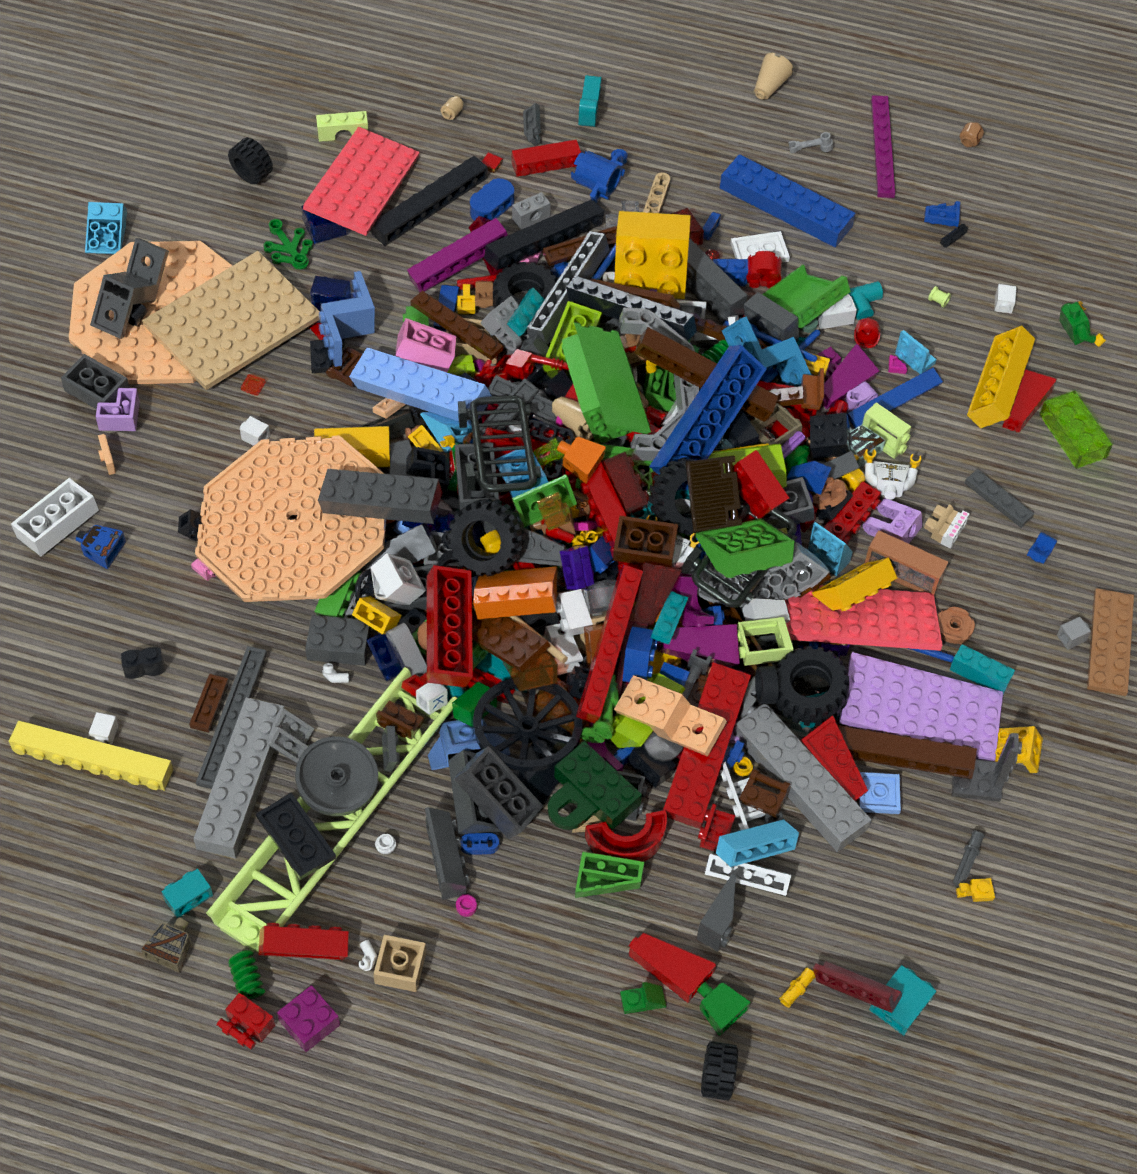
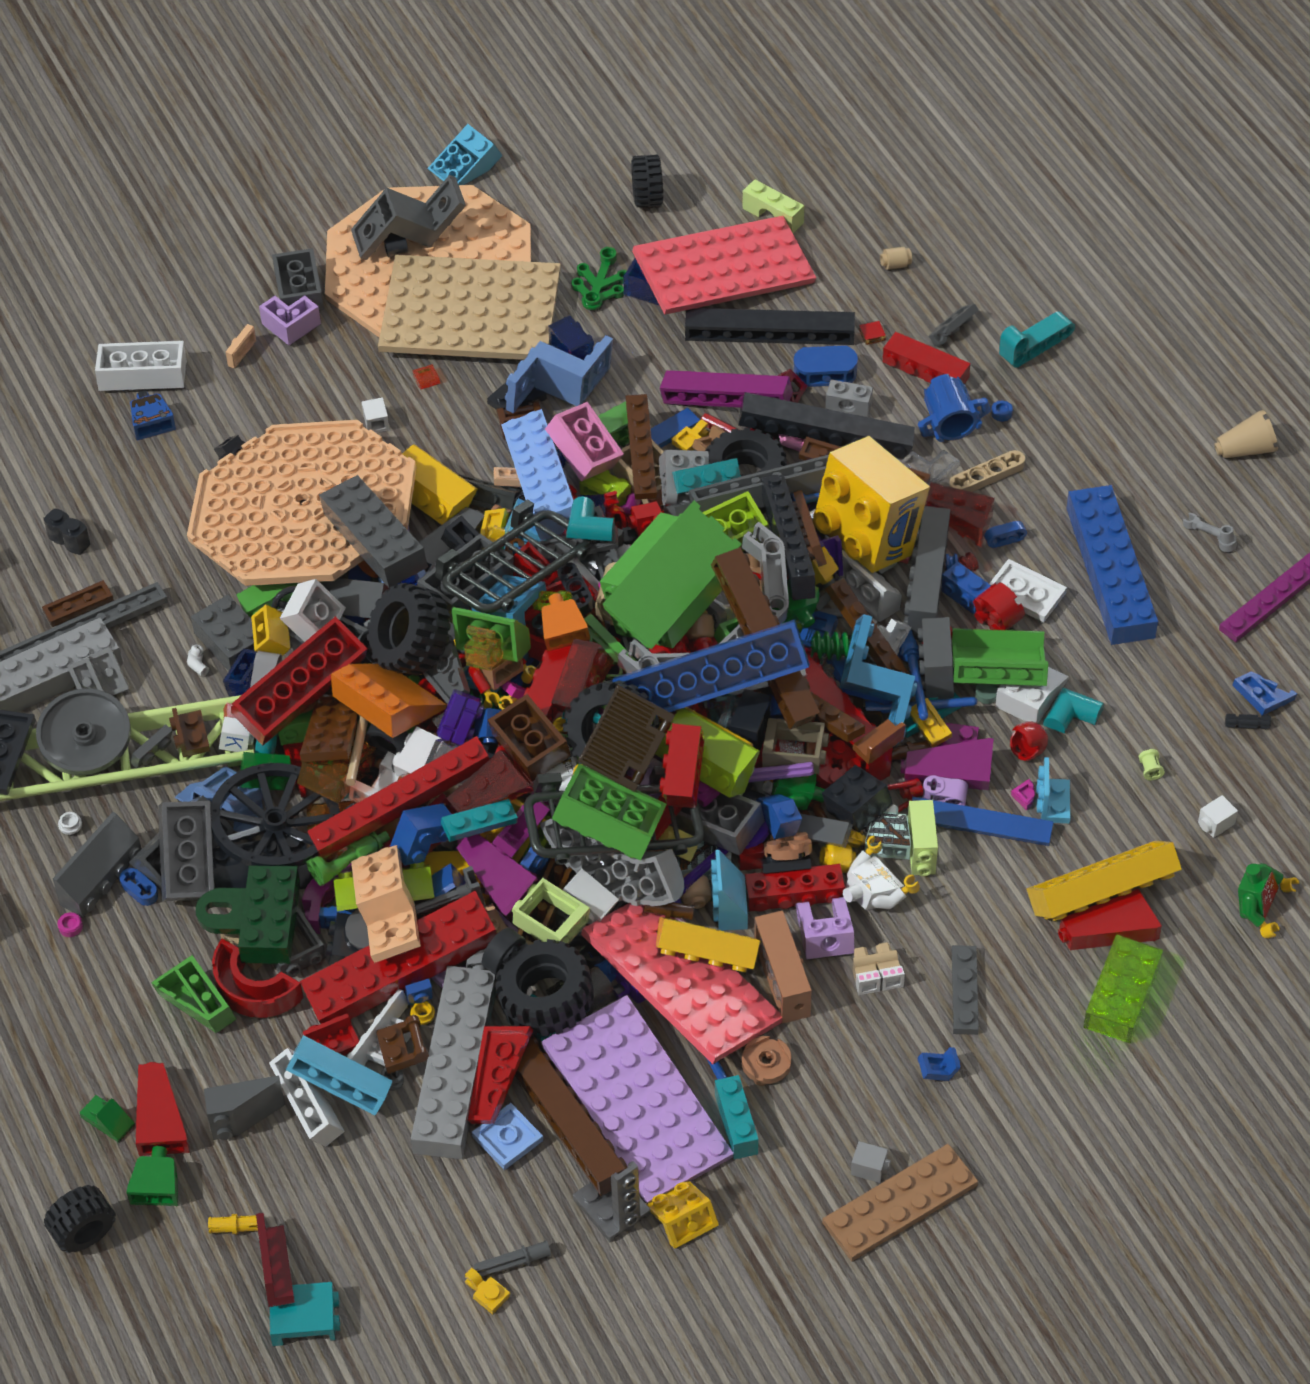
camera: 50 degrees right, 5 degrees down
(511, 392) = (584, 525): none -> teal brick

